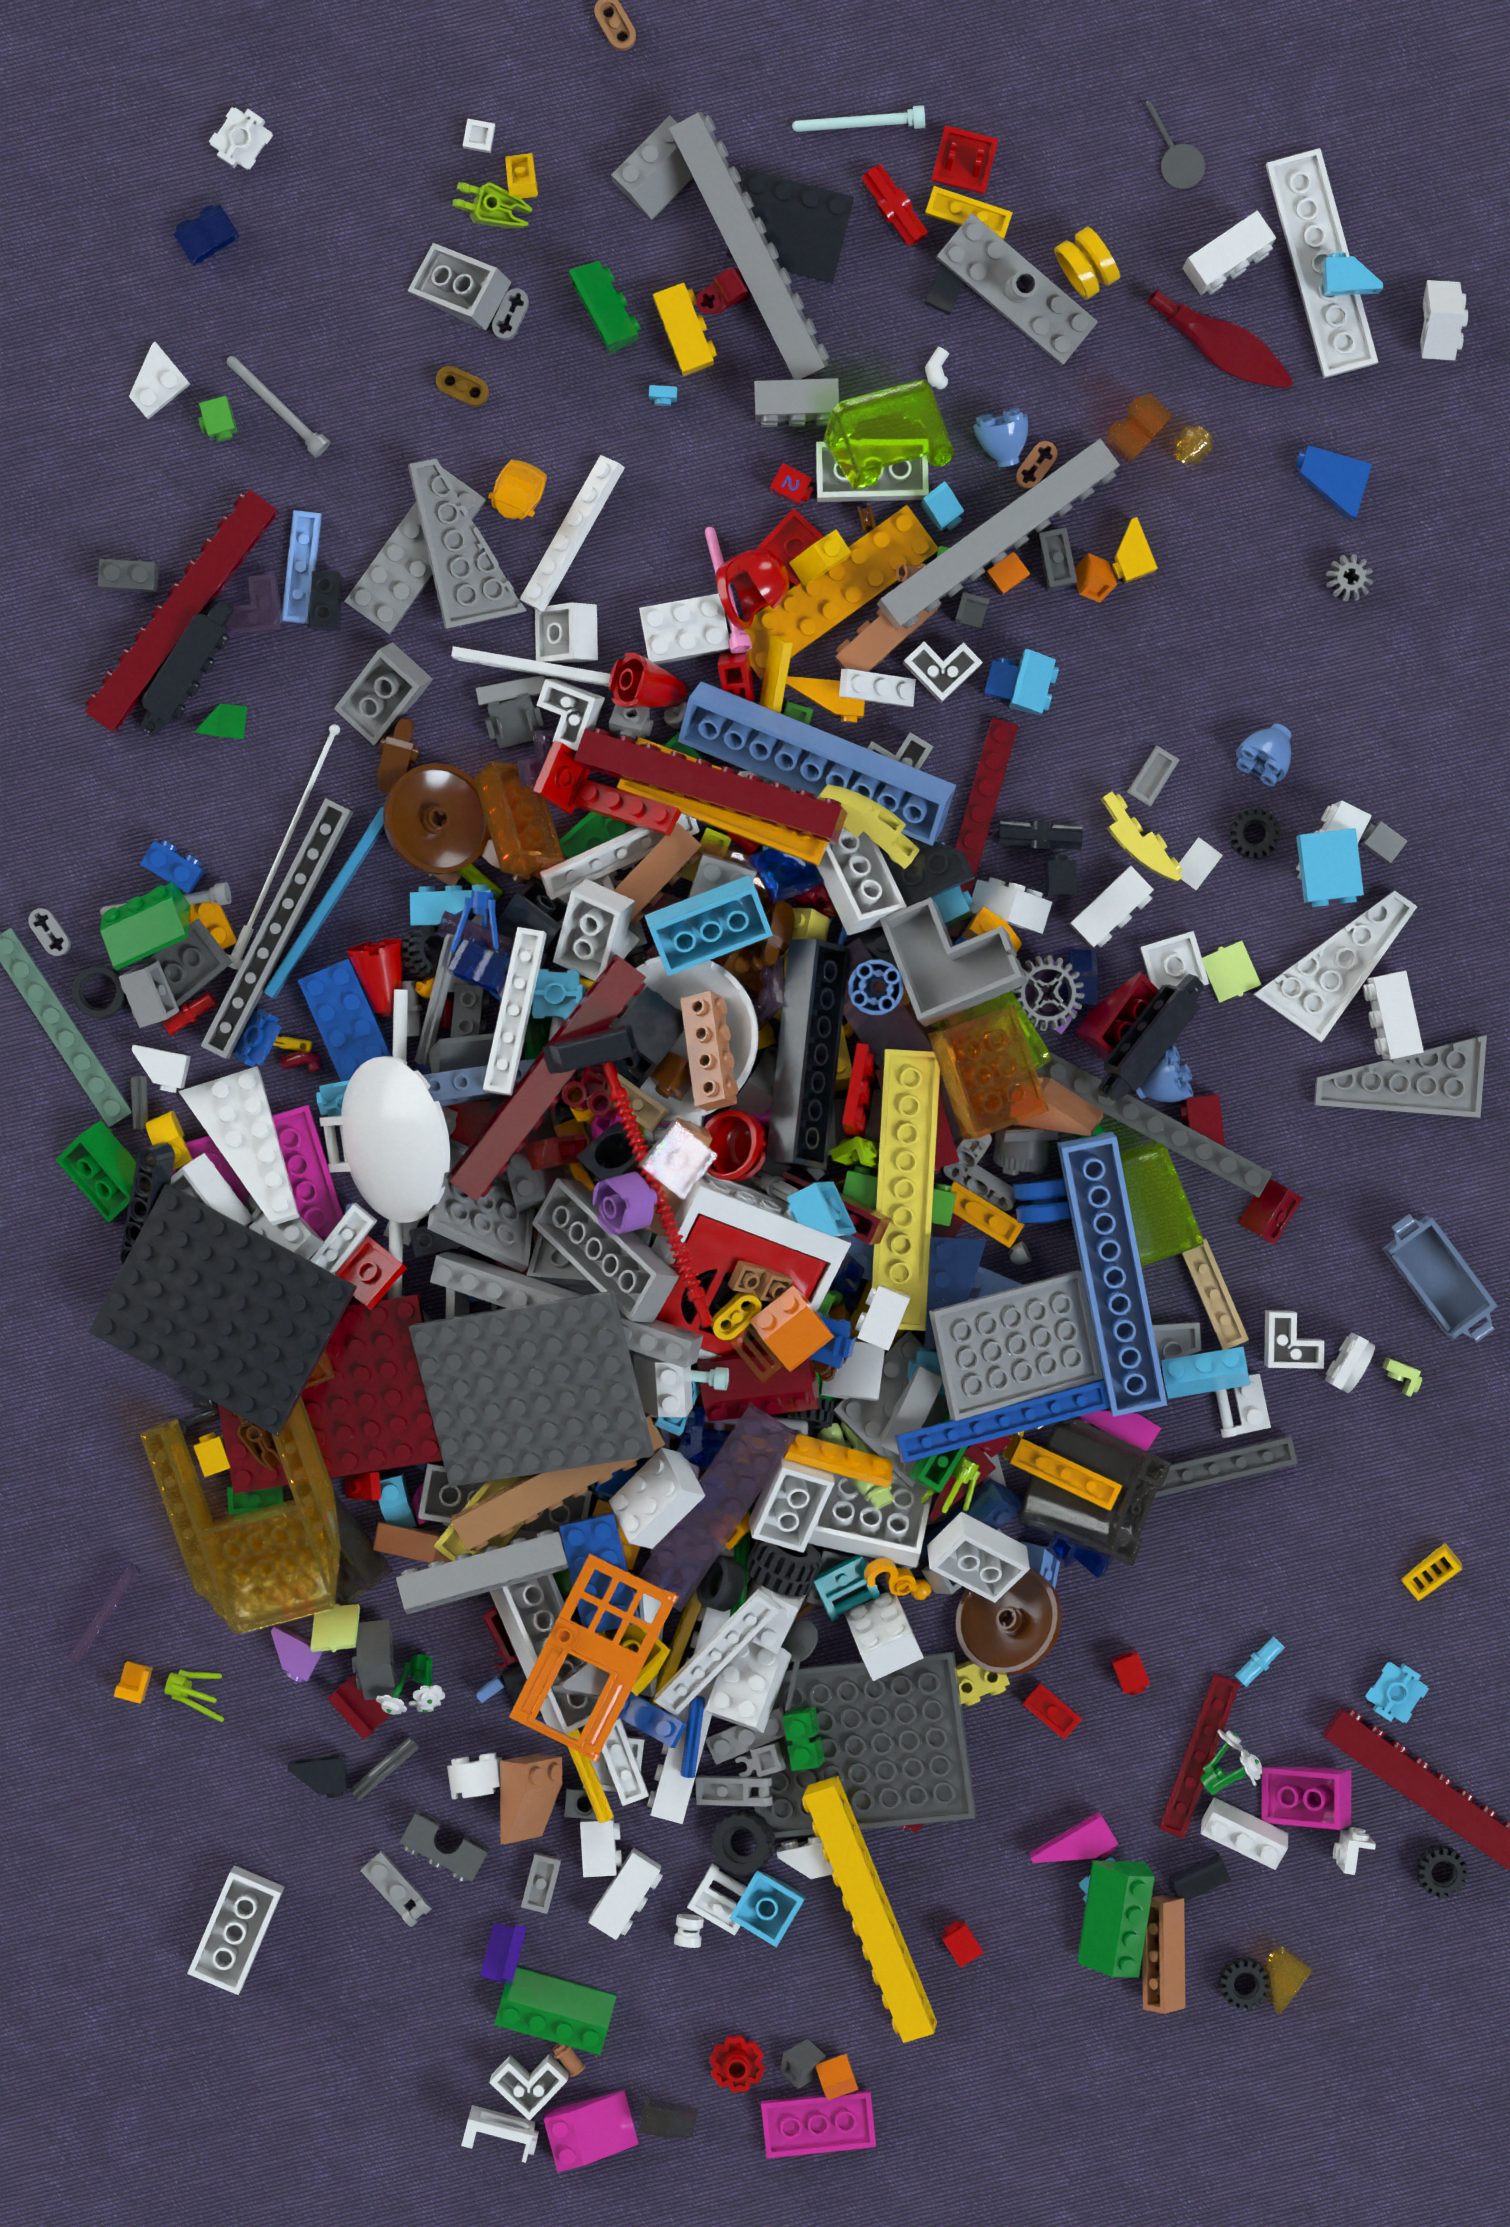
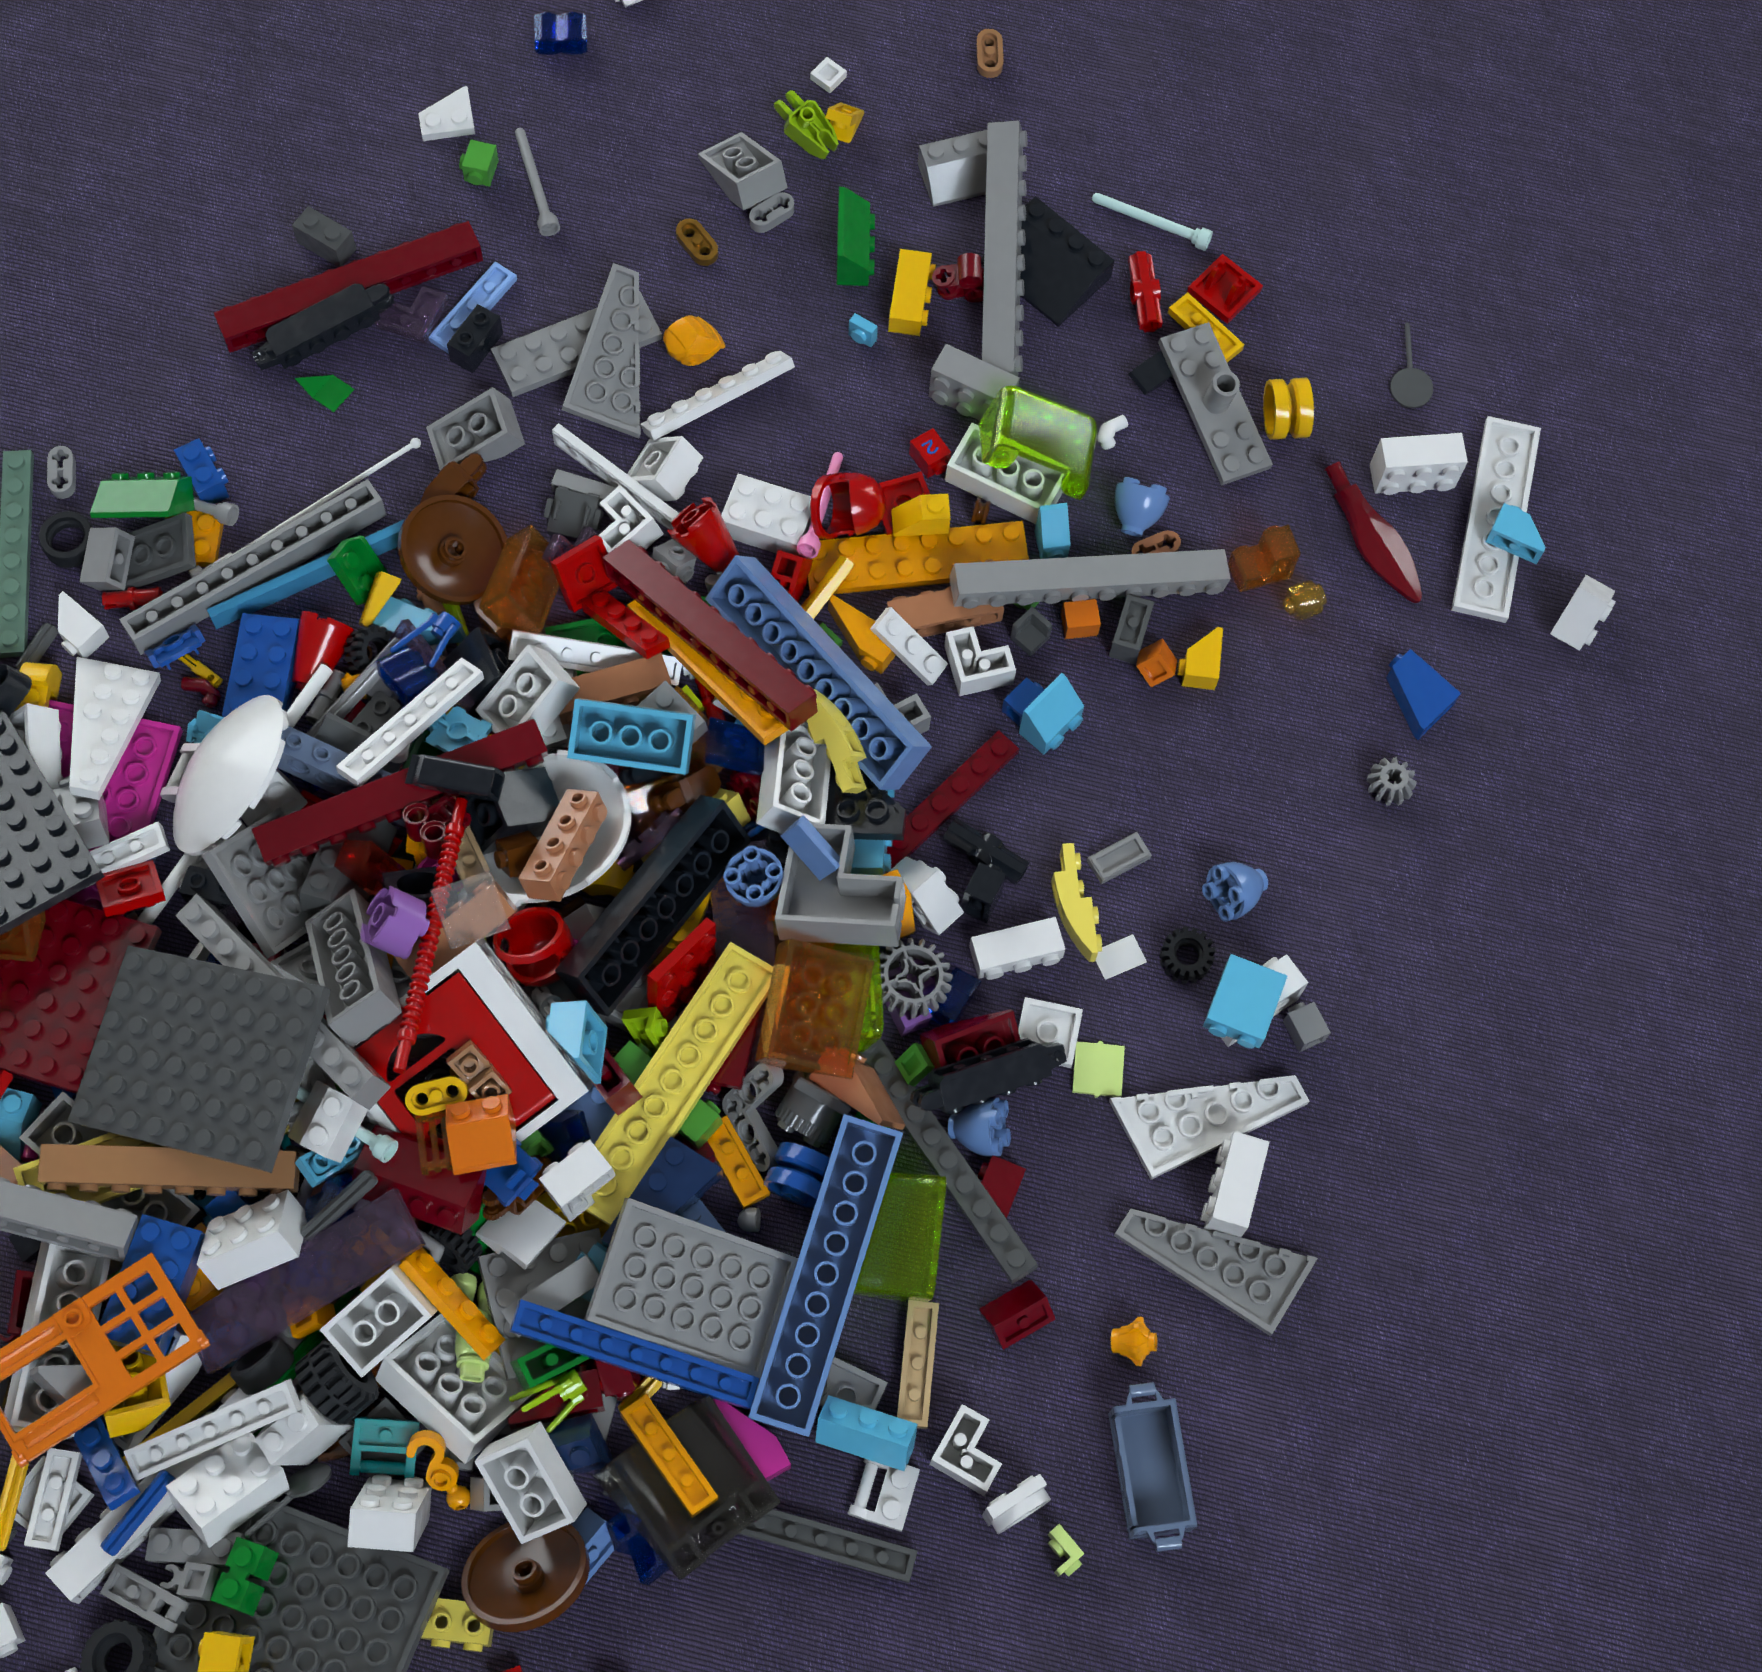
camera: 25 degrees right, 20 degrees down
(368, 884) = (356, 567): none -> green bracket
(401, 896) = (380, 592): none -> yellow slope
(710, 1439) = (339, 1205): none -> dark grey axle
(909, 935) = (811, 848): none -> medium blue panel
(1083, 1058) = (914, 1064): none -> bright green plate
(1374, 1183) = (1134, 1341): none -> light orange rock

